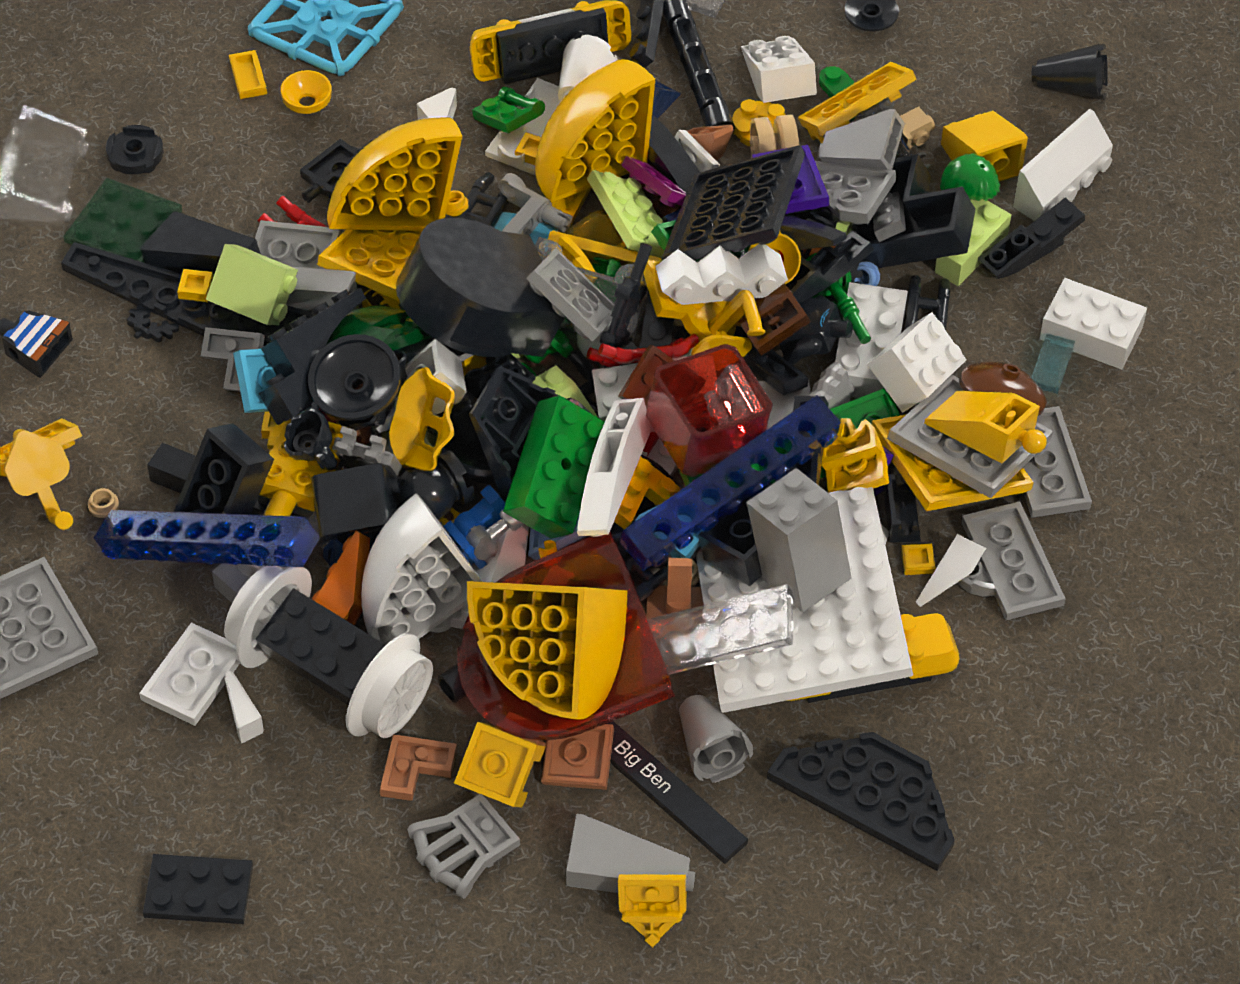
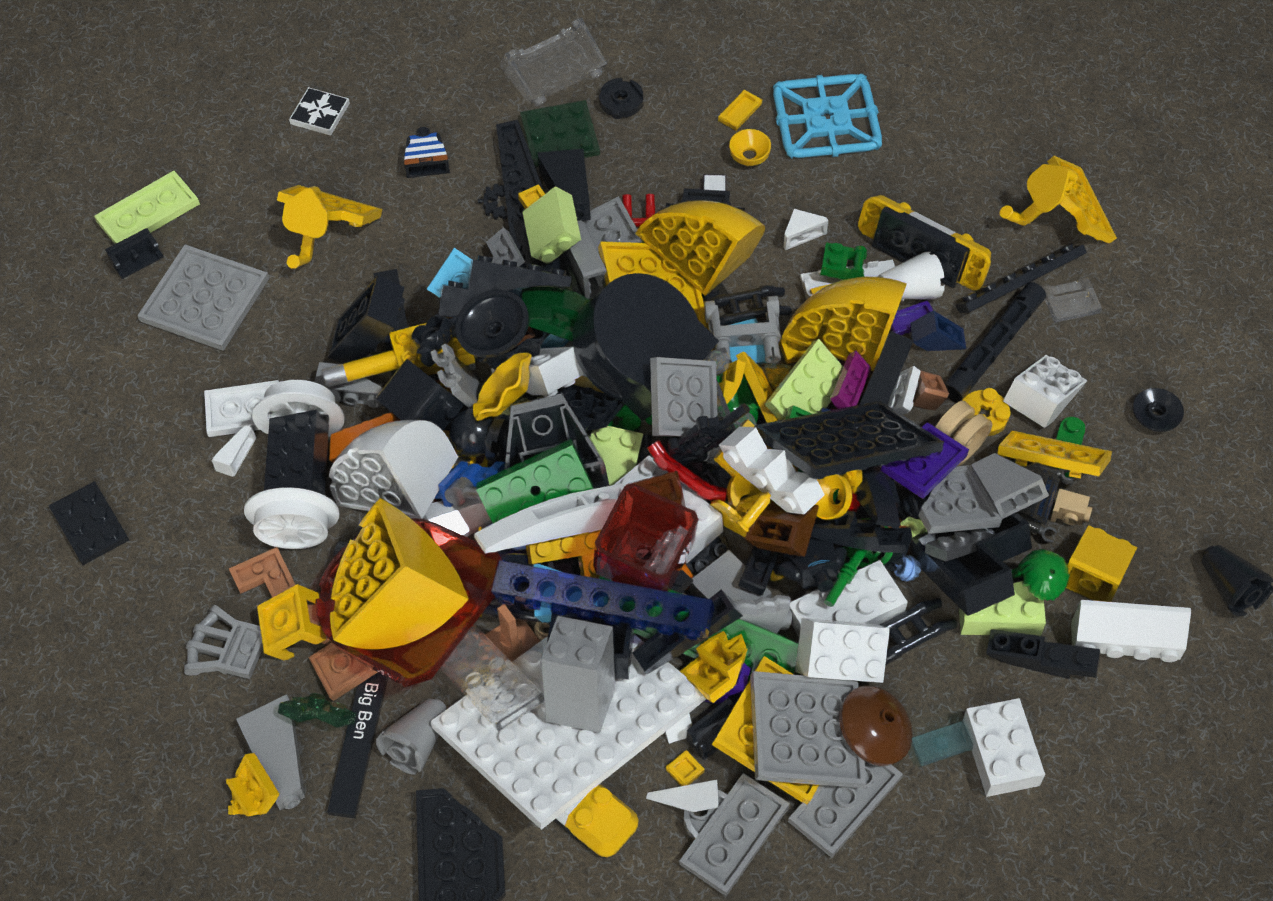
camera: 55 degrees right, 5 degrees up
(102, 496) = (335, 268): tan plate -> none
(207, 538) = (320, 341): clear blue brick -> none
(313, 146) = (714, 182): none -> white tile
(457, 203) = (729, 285): yellow plate -> none
(611, 802) = (317, 707): none -> clear green plate
(990, 423) = (817, 733): yellow slope -> none

